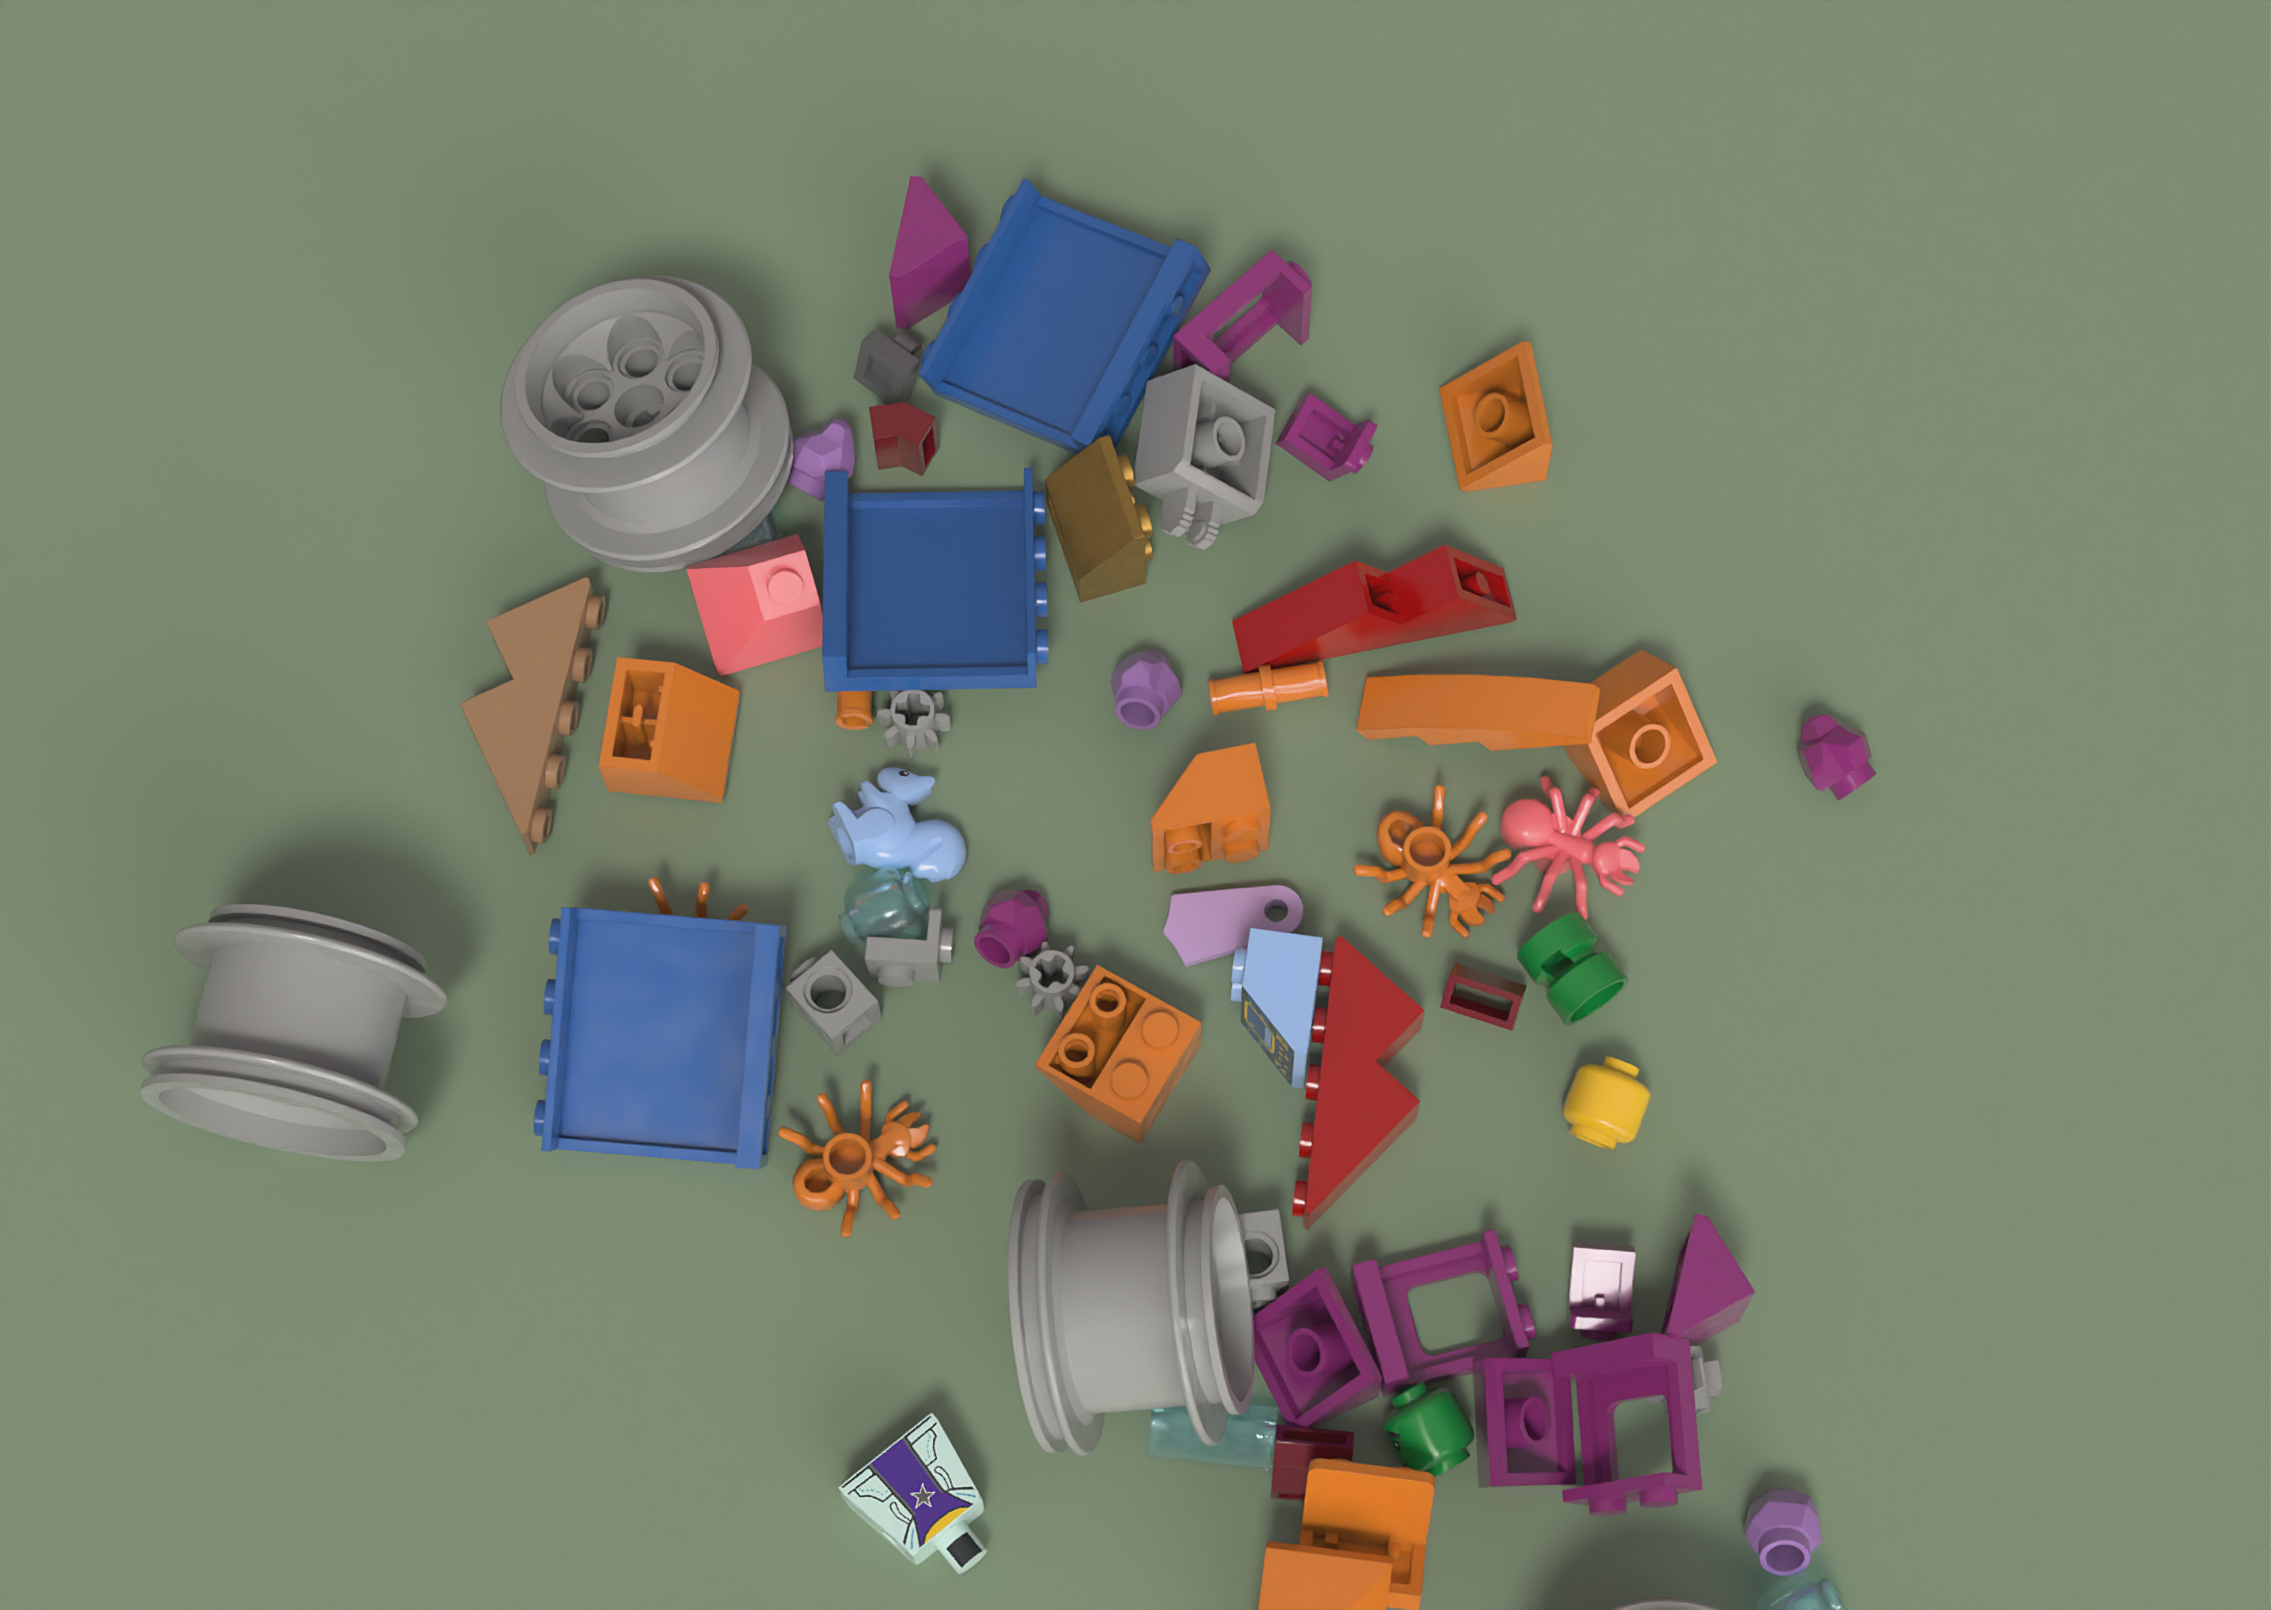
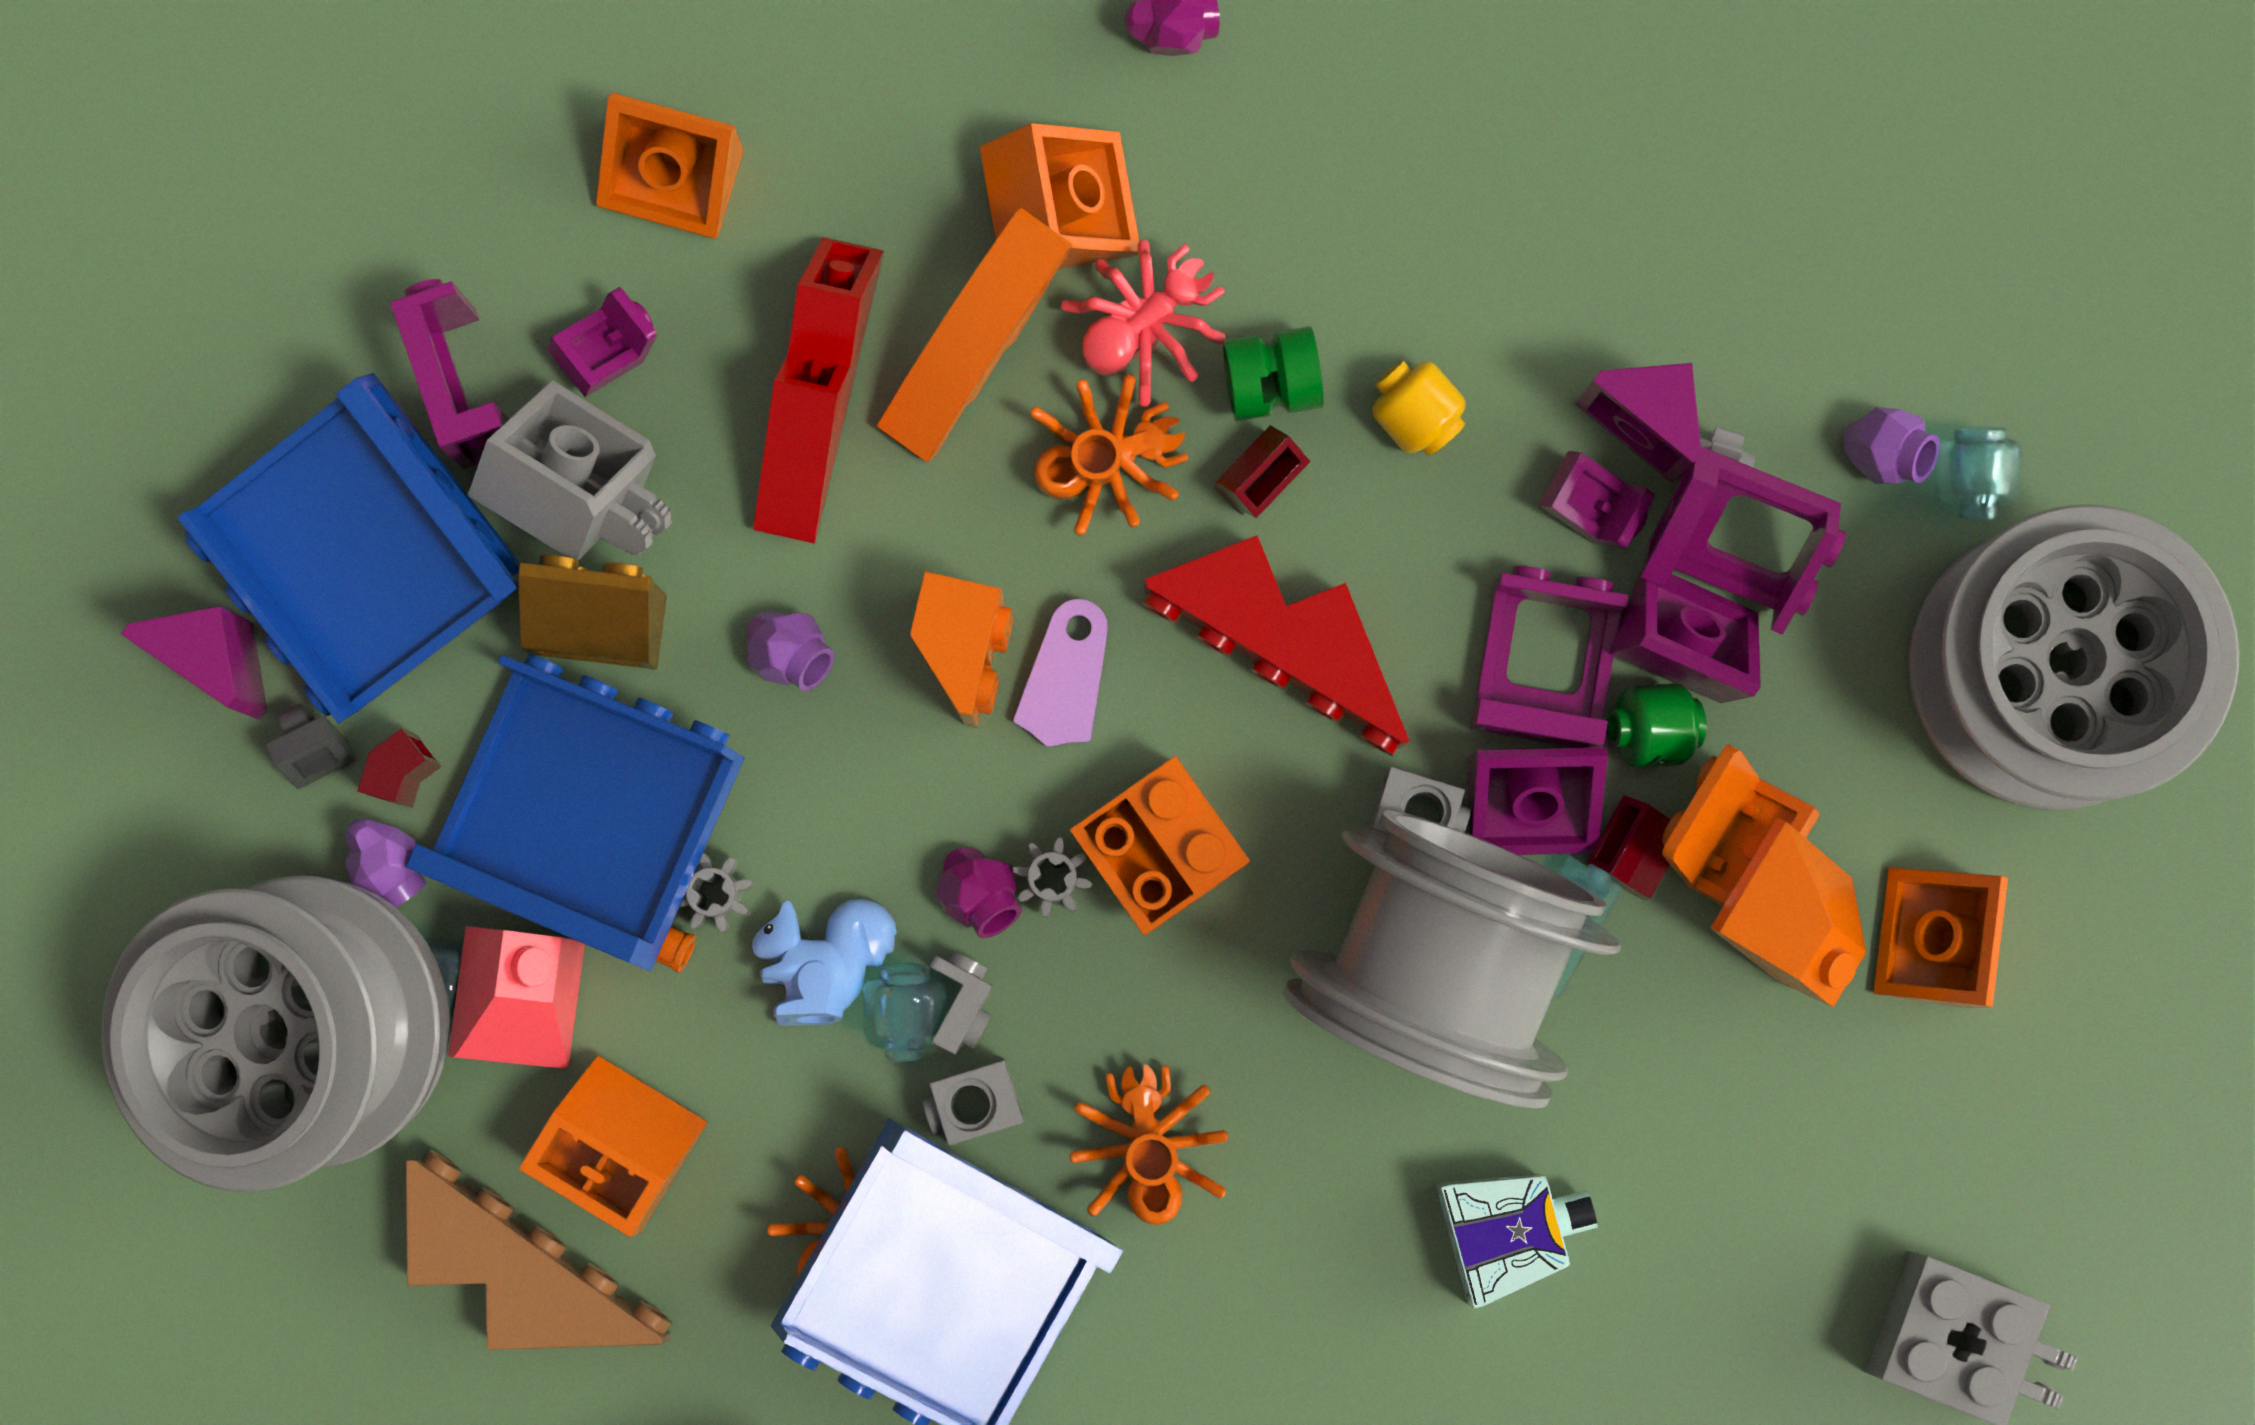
camera: 70 degrees left, 15 degrees up
(1268, 687) = (842, 527): orange pin -> none
(1277, 996) = (1183, 666): light blue slope -> none

